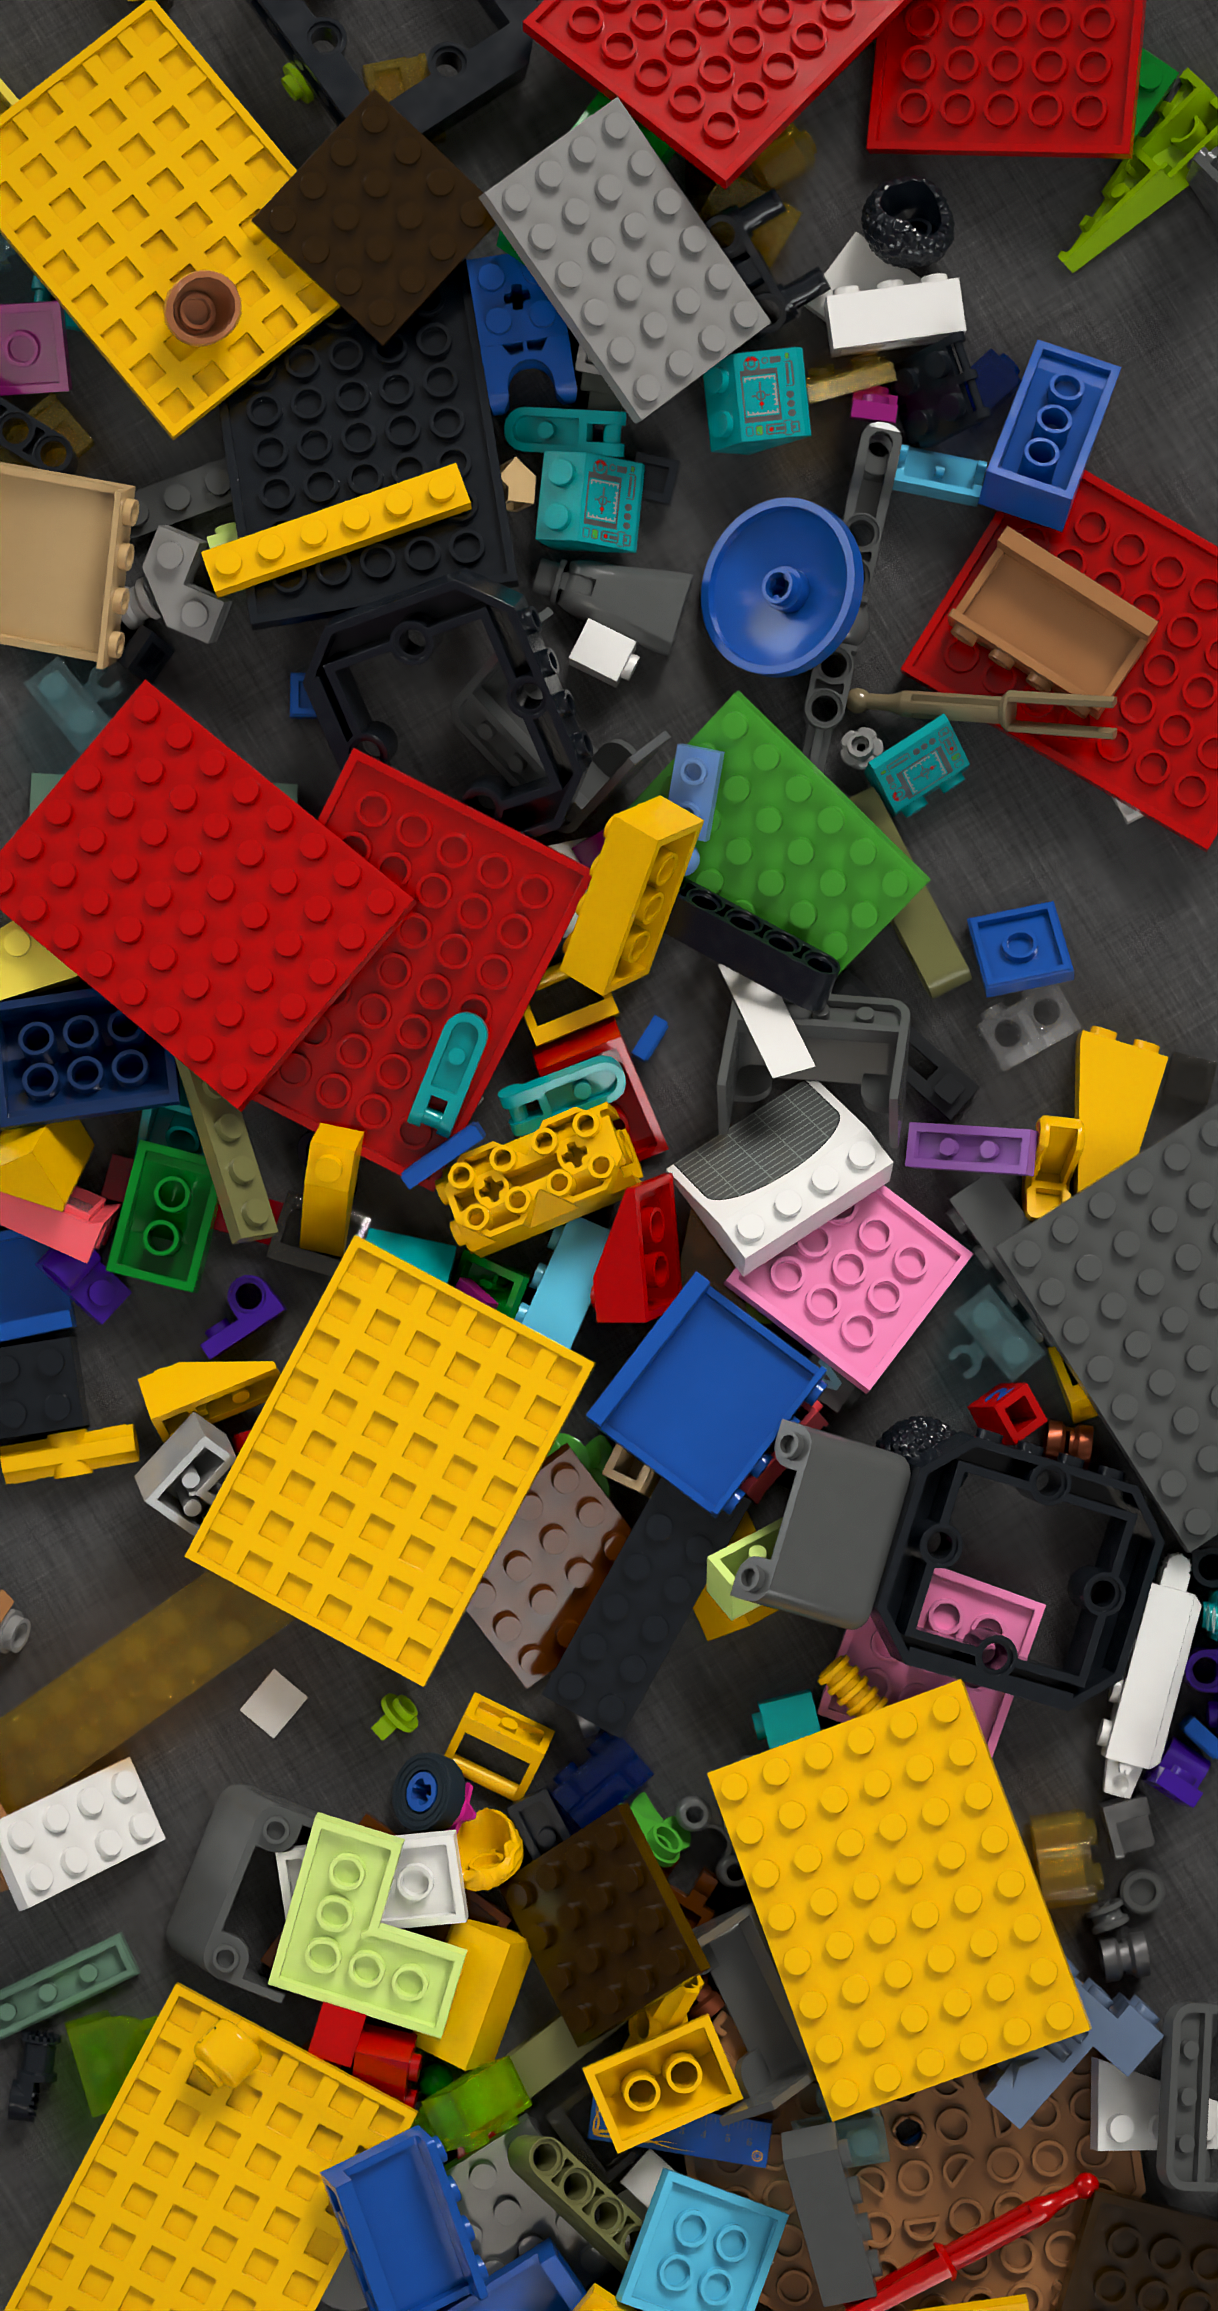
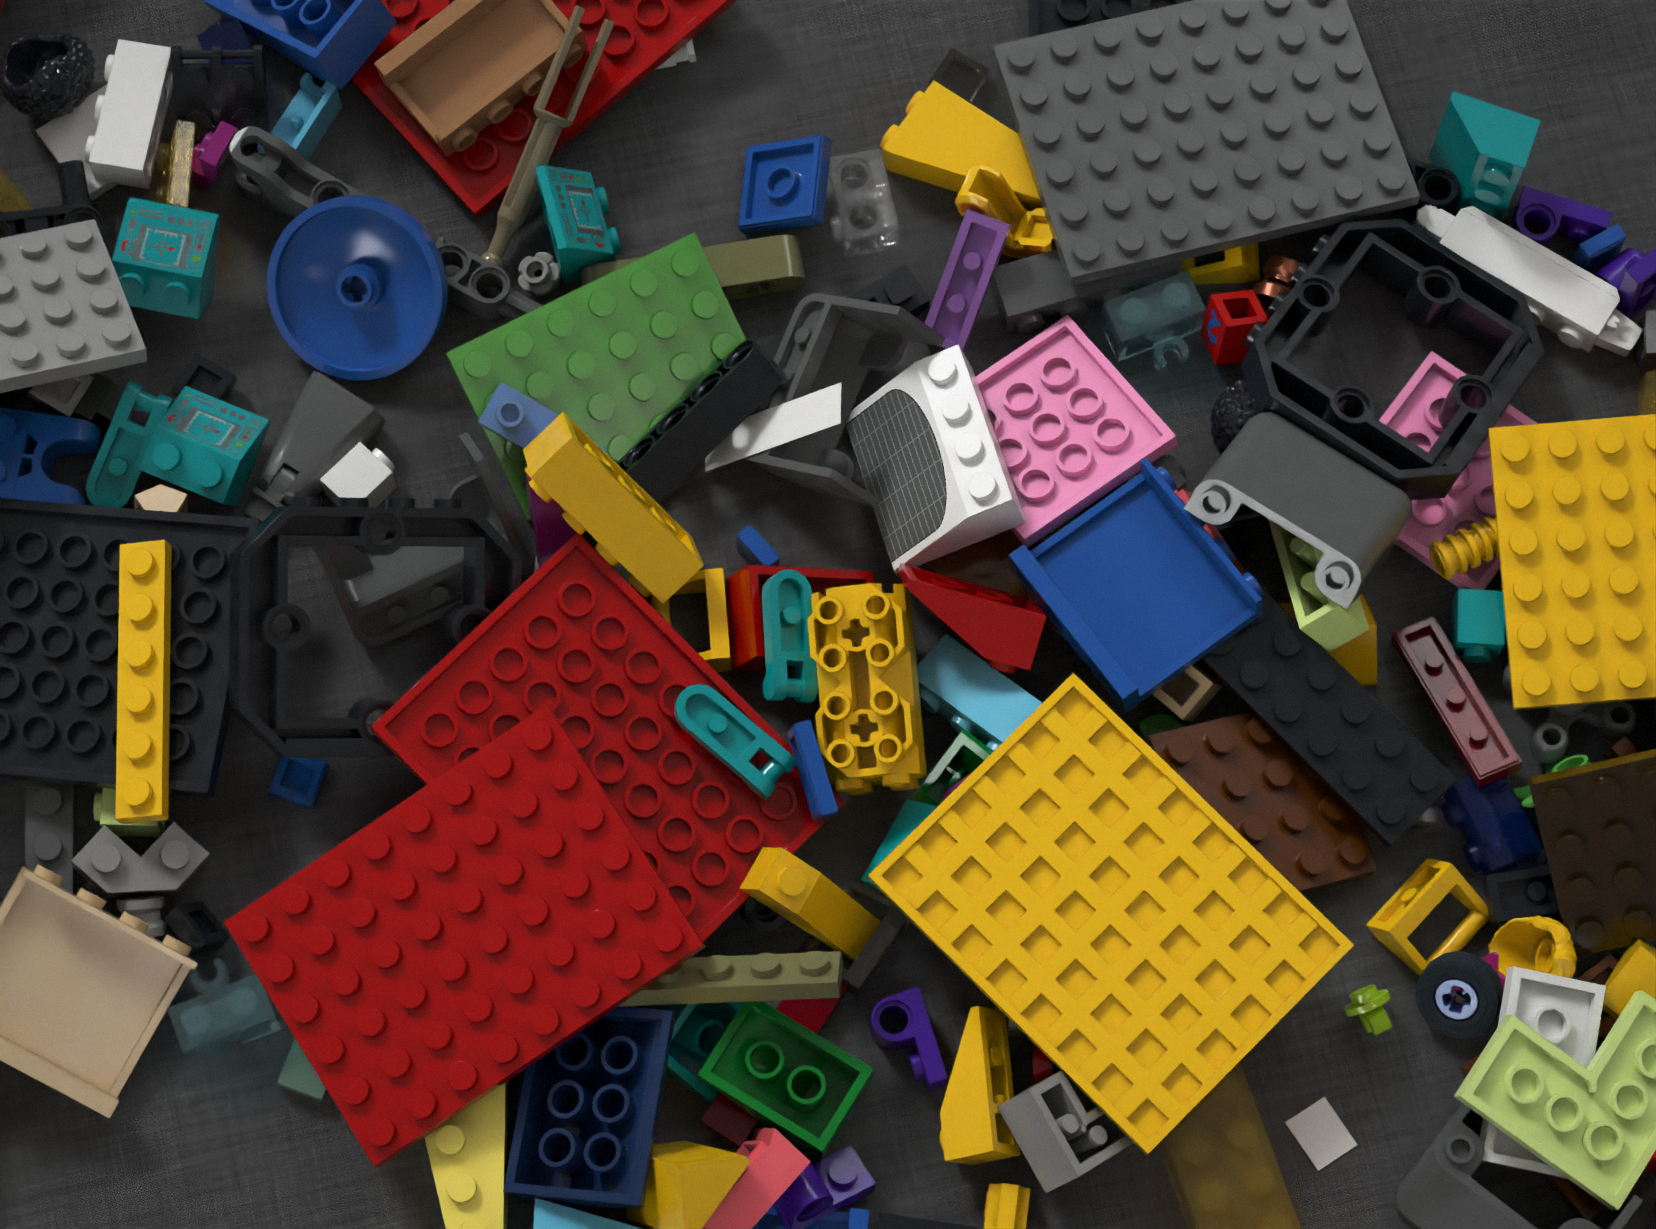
camera: 75 degrees left, 15 degrees down
(705, 1718) = (1456, 701): none -> tile

